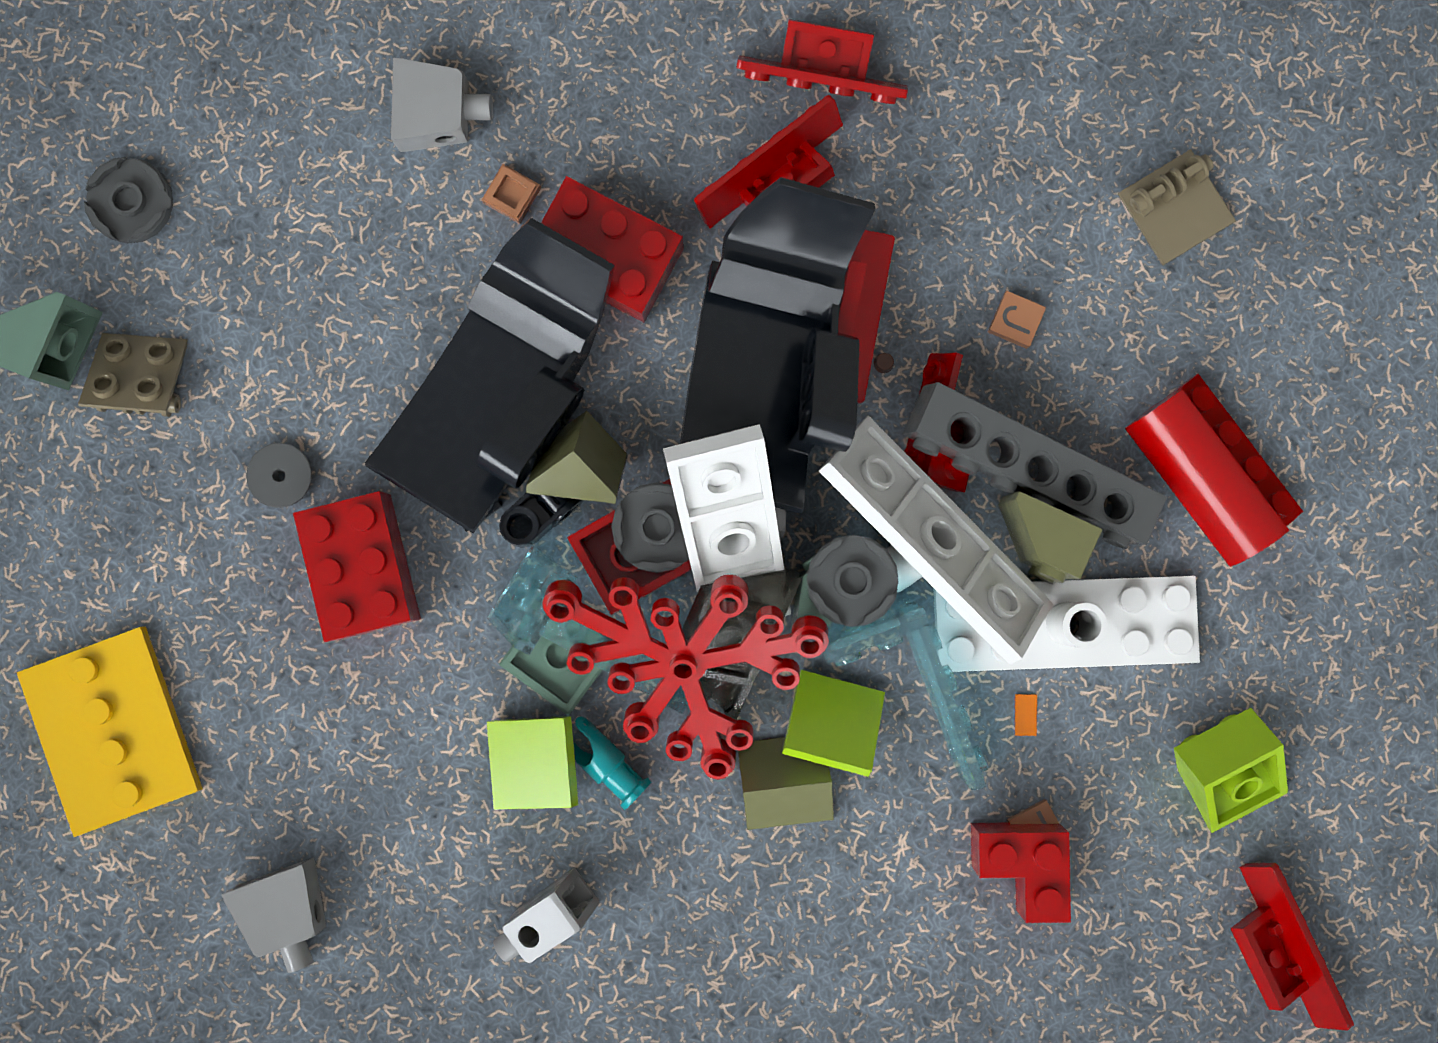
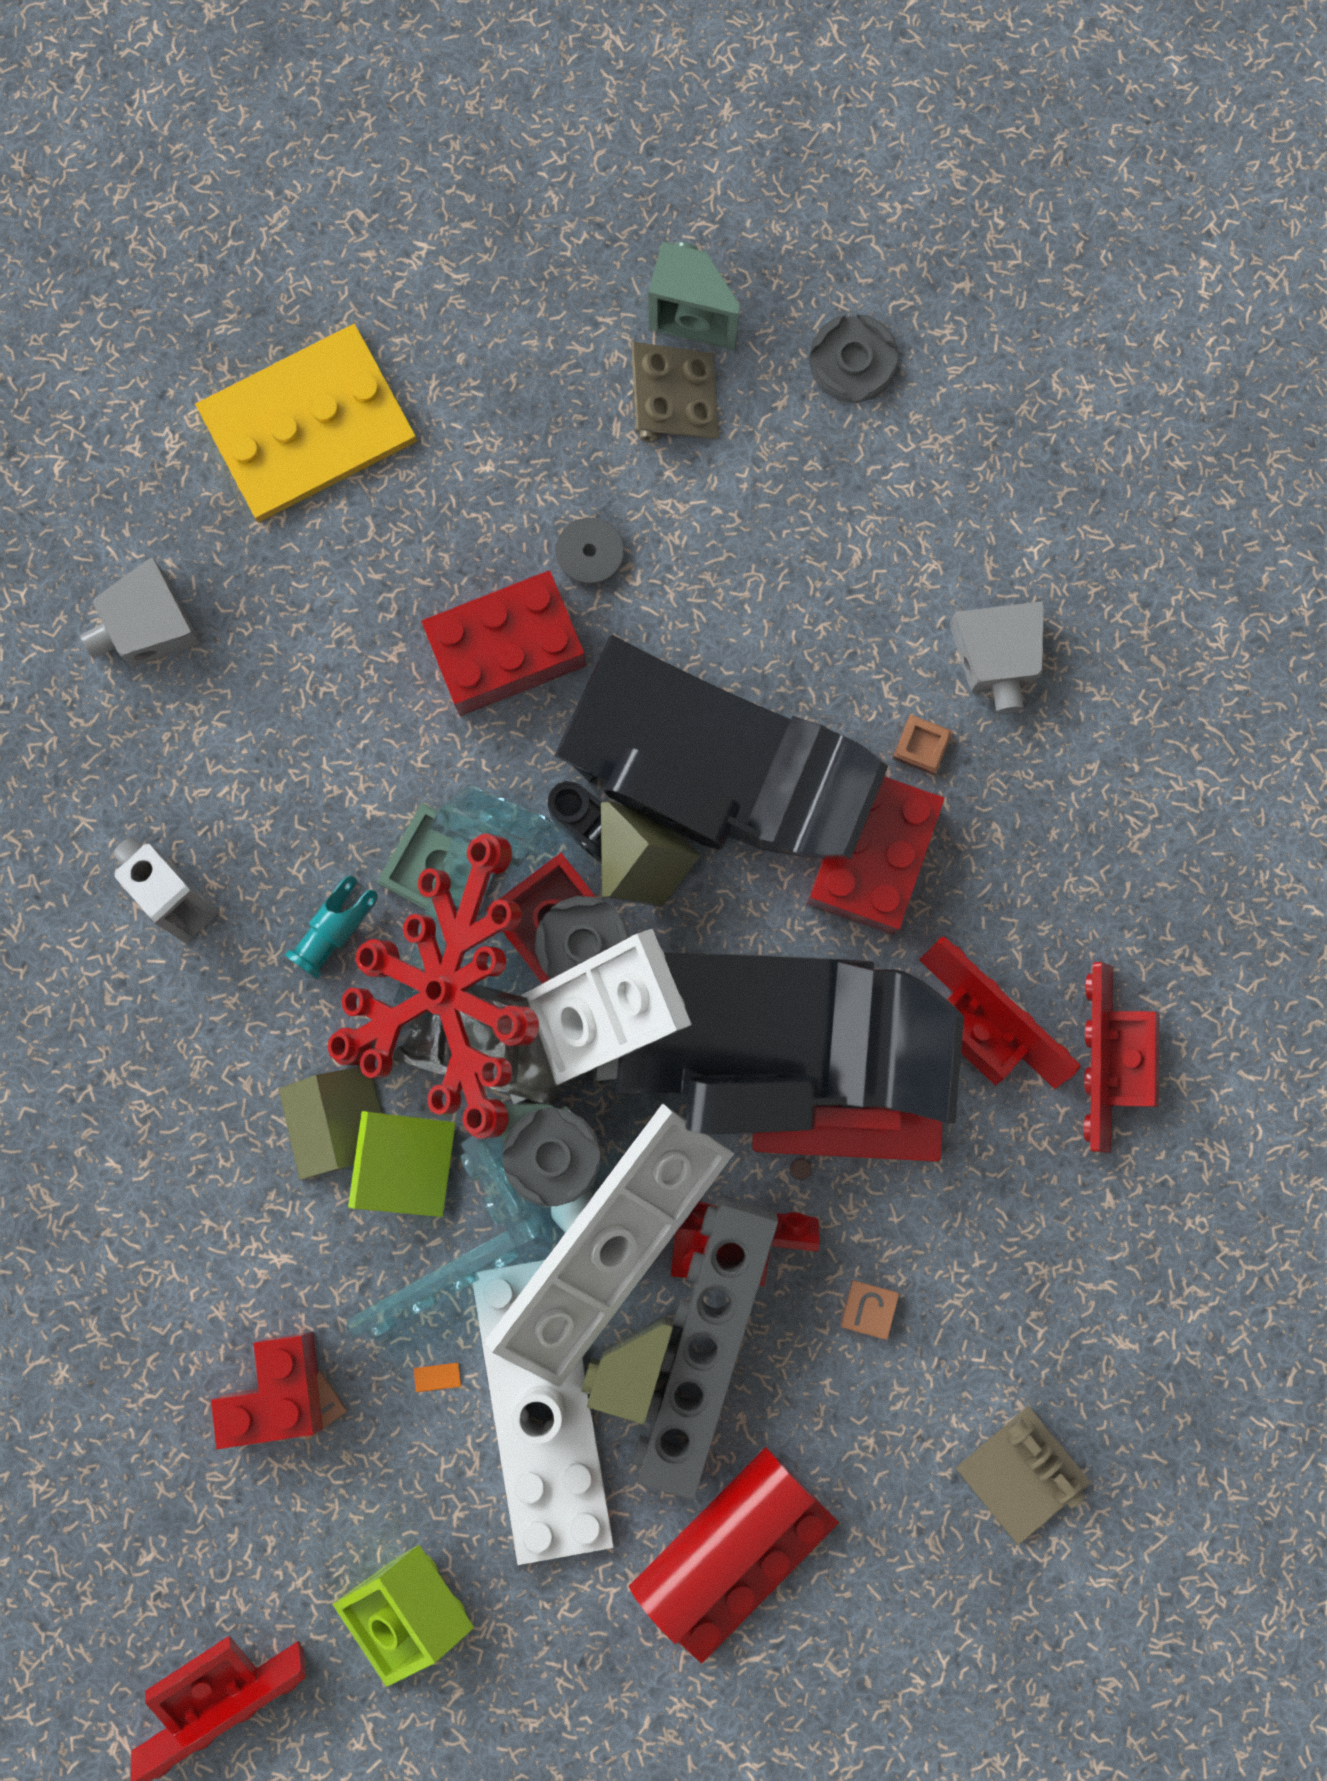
camera: 85 degrees right, 5 degrees down
(532, 763) = (322, 851): lime tile -> none

